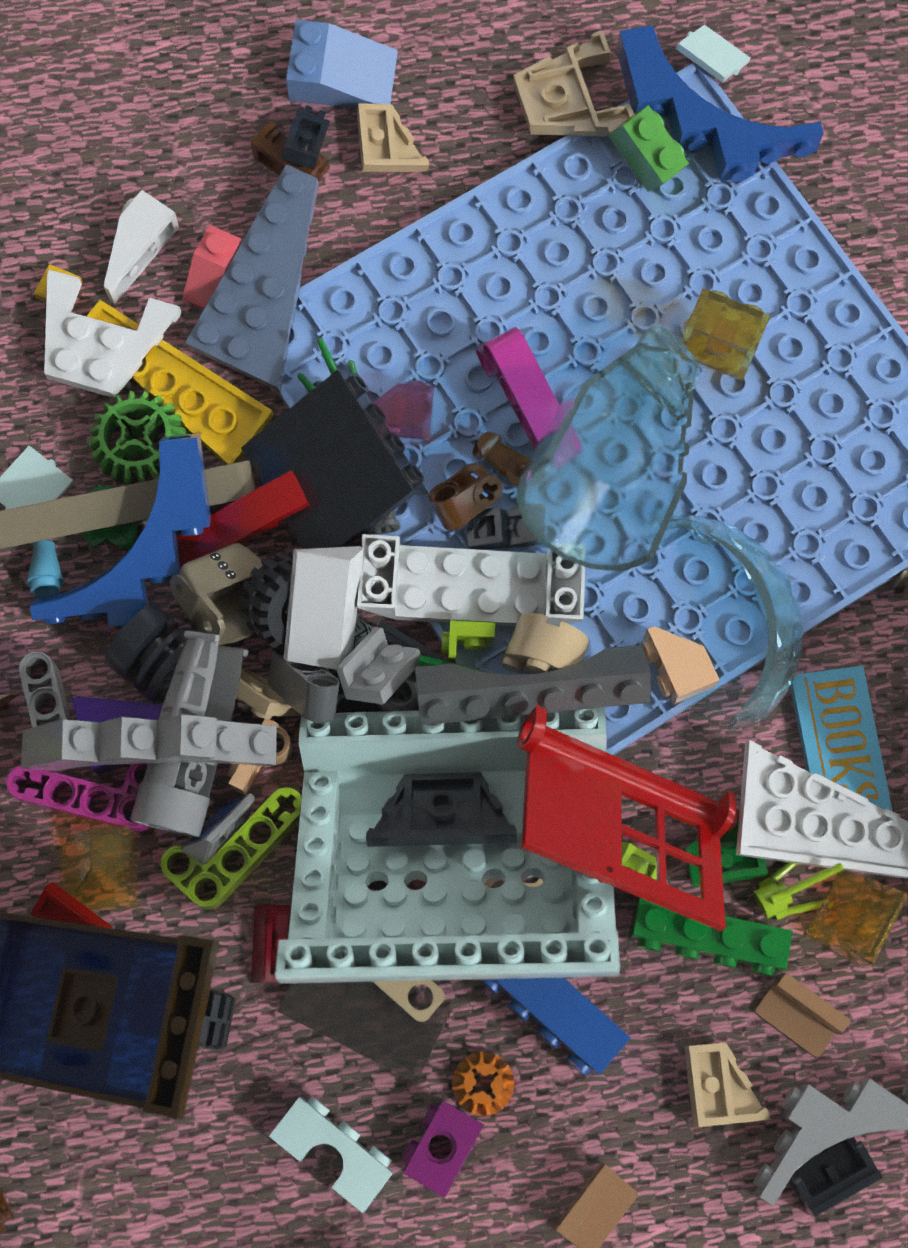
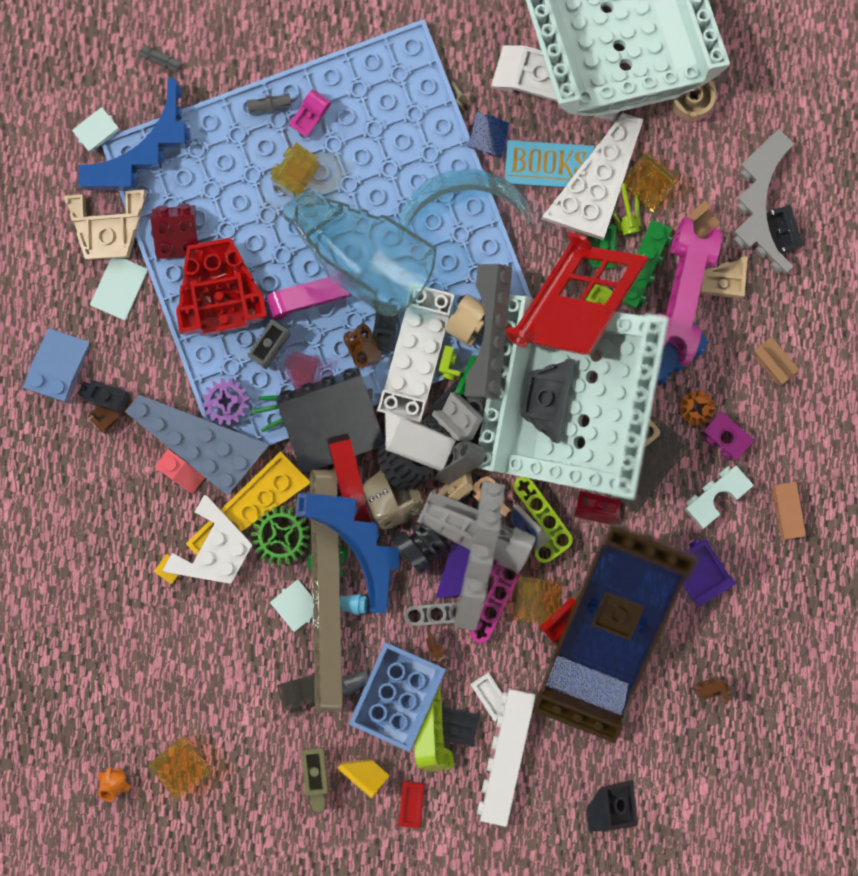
camera: 70 degrees left, 10 degrees up
(139, 237) = (146, 511): white slope -> none
(193, 1153) = (708, 576): none -> dark purple panel
(334, 293) = (216, 403): none -> medium lavender gear
(386, 142) = (113, 348): tan wing -> none
(436, 350) = (269, 344): none -> dark grey brick
(481, 134) = (119, 287): none -> light aqua piece
(501, 457) = (345, 316): reddish brown piece -> none
(503, 257) = (217, 291): none -> red wedge
(585, 183) = (173, 230): none -> dark red bracket
(649, 148) = (162, 187): bright green brick -> none
(681, 664) = (490, 244): light nougat slope -> none
(746, 1016) = (693, 258): none -> dark pink piece
(821, 282) = (269, 103): none -> dark grey pin
(825, 346) = (310, 113): none -> dark pink plate
(846, 122) = (160, 58): none -> dark grey axle
(863, 632) = (488, 135): none -> clear blue piece

